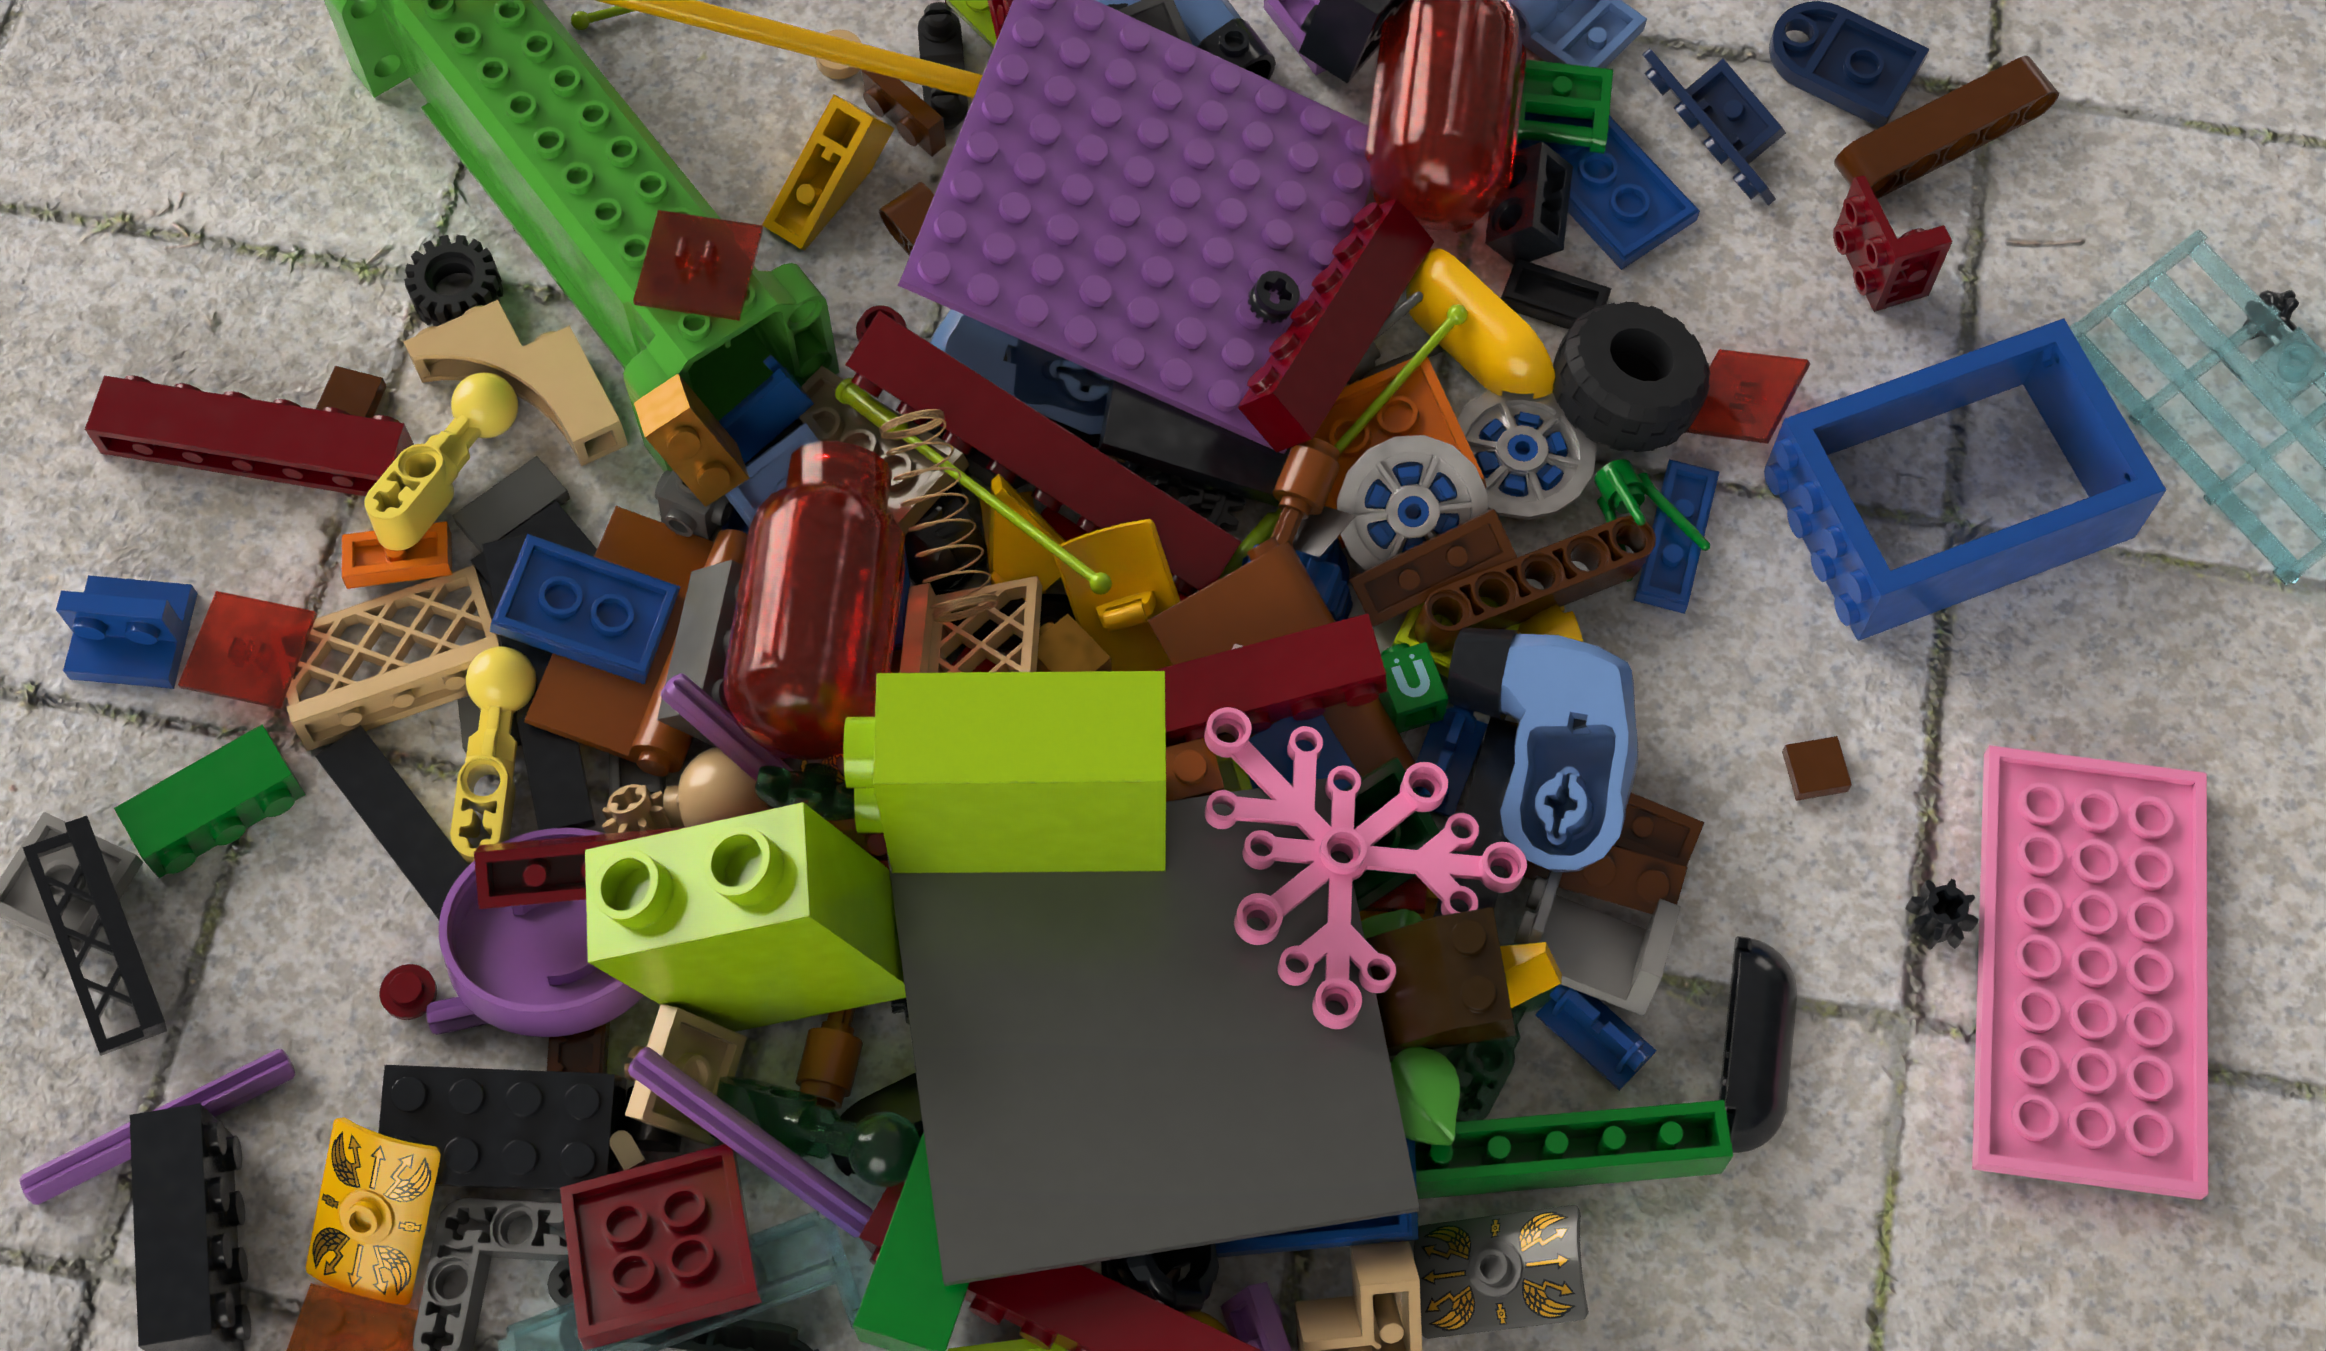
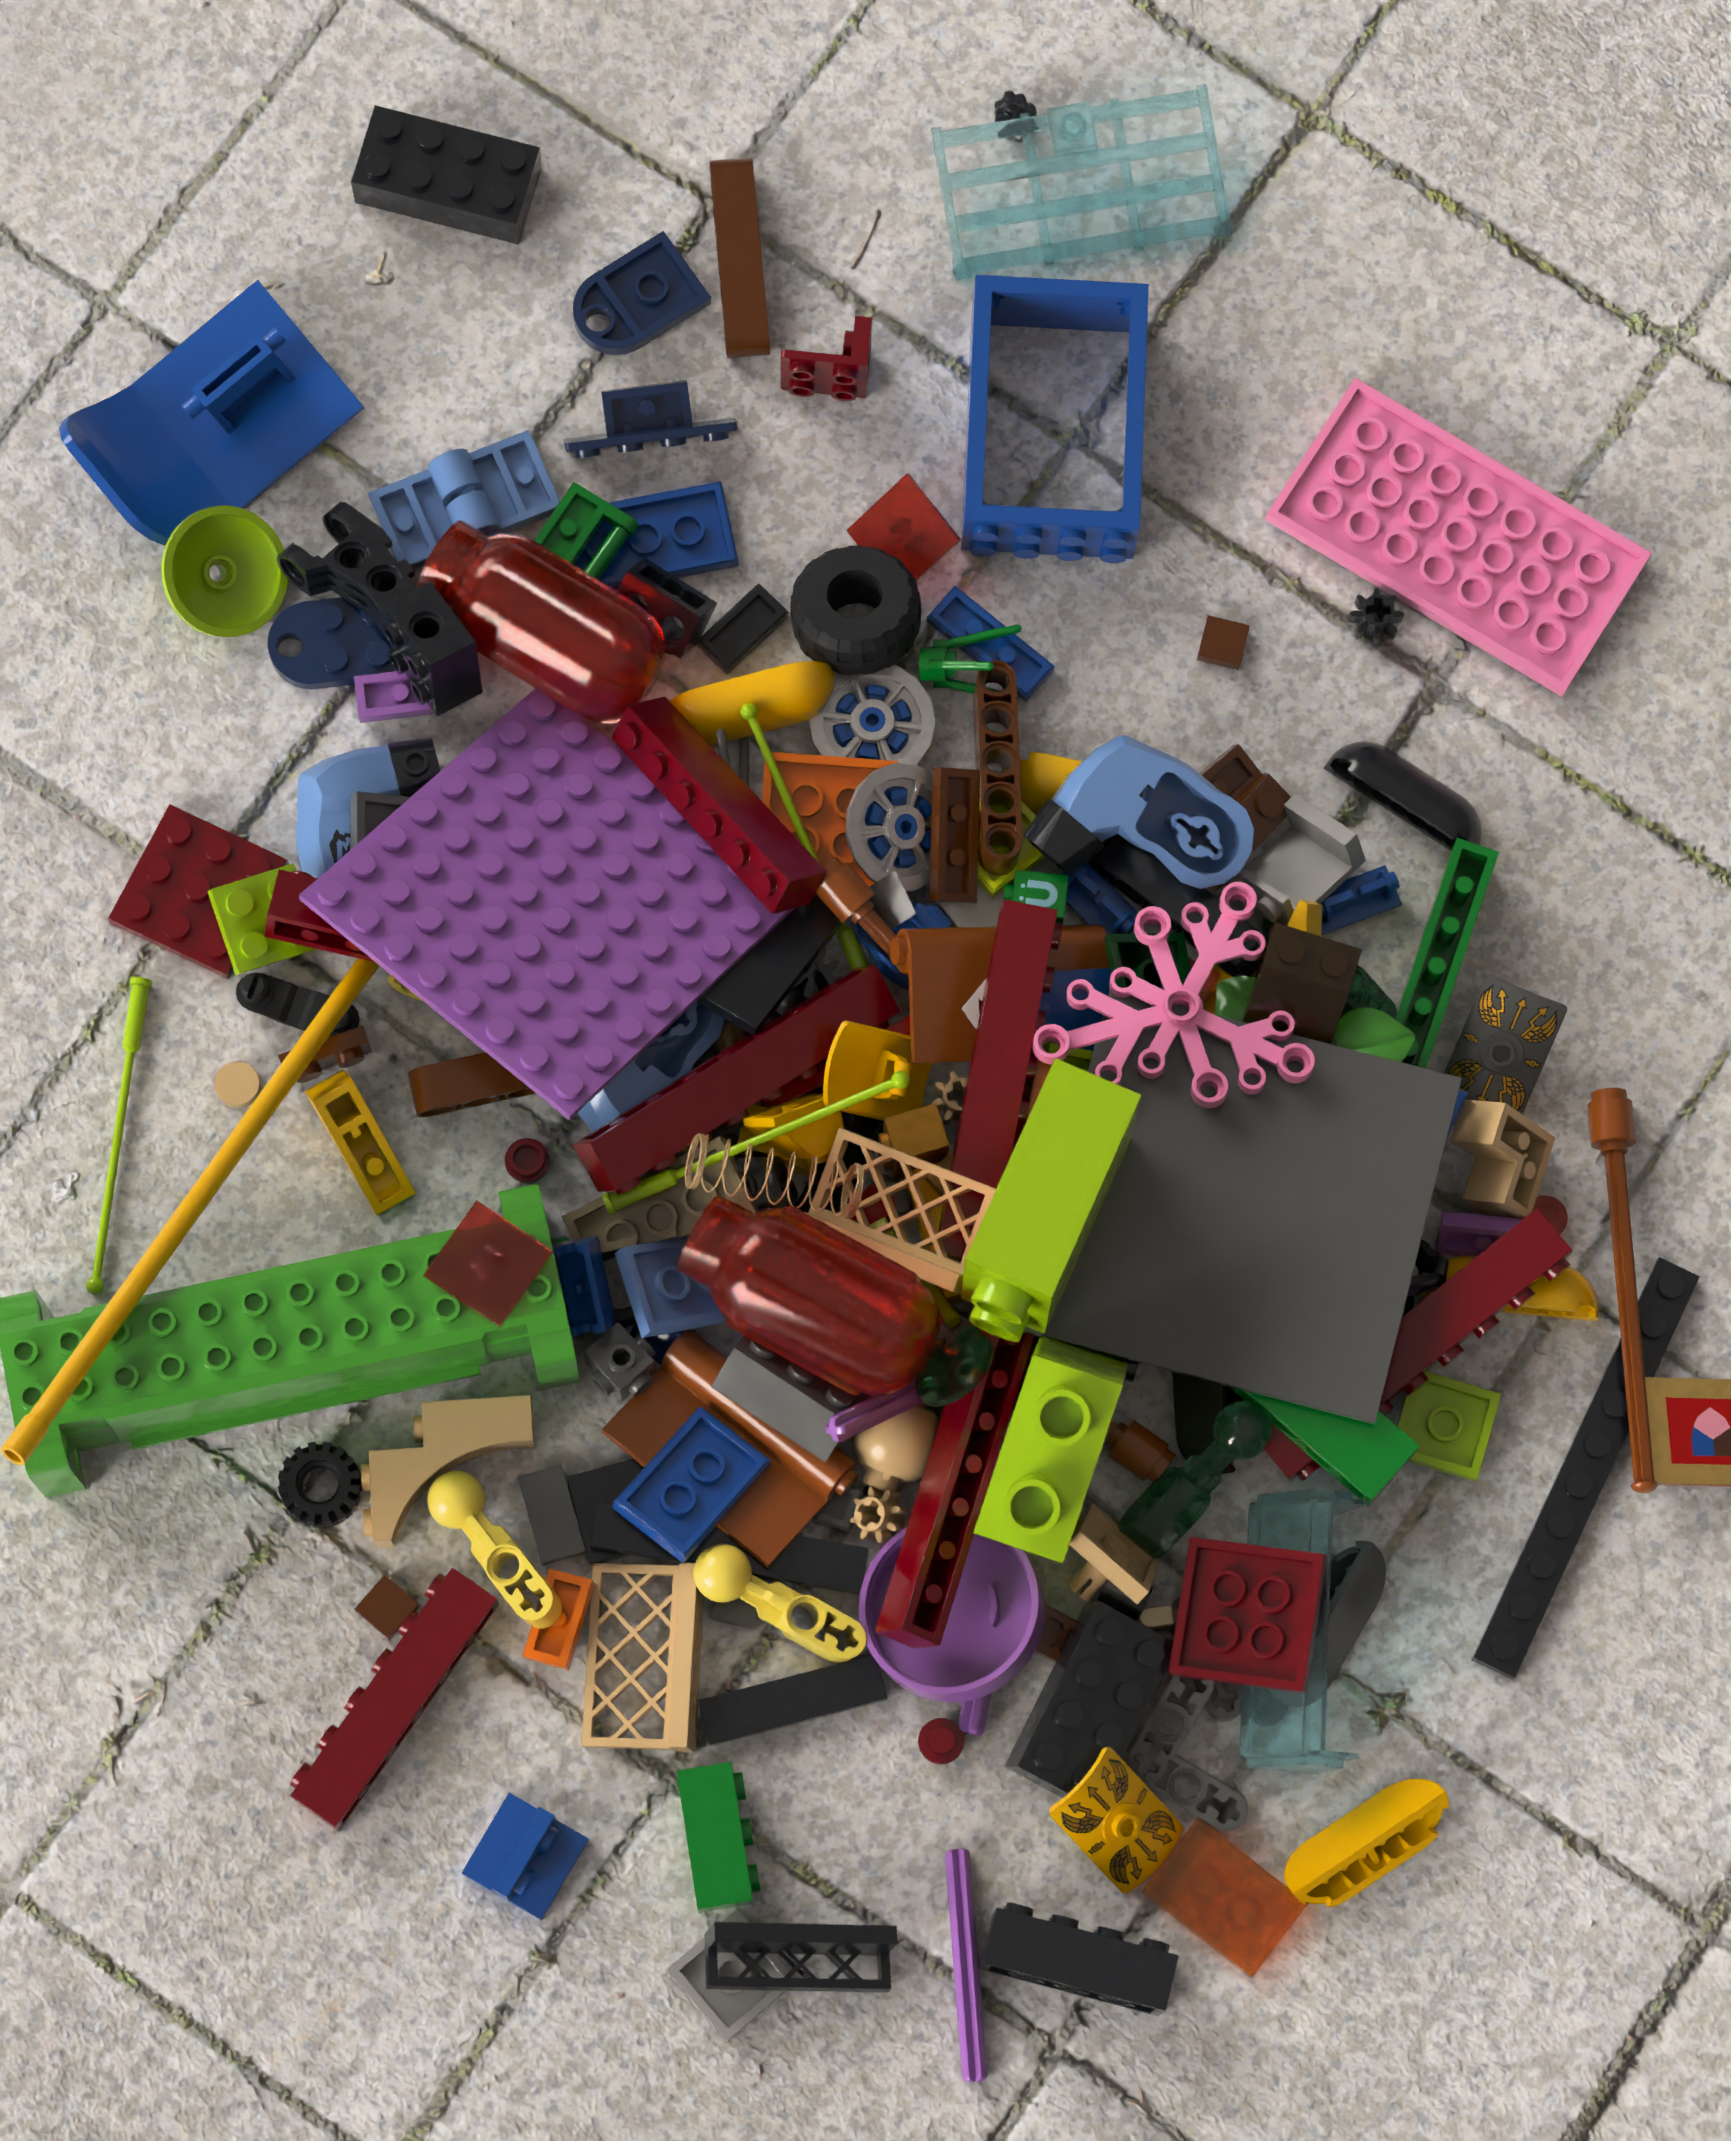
camera: 70 degrees left, 10 degrees up
(247, 649) = (594, 1764): clear red piece -> none
(691, 440) = (617, 1336): pearl gold piece -> none
(750, 1141) = (1194, 1523): medium lavender axle -> none
(1260, 295) = (679, 852): black bush -> none

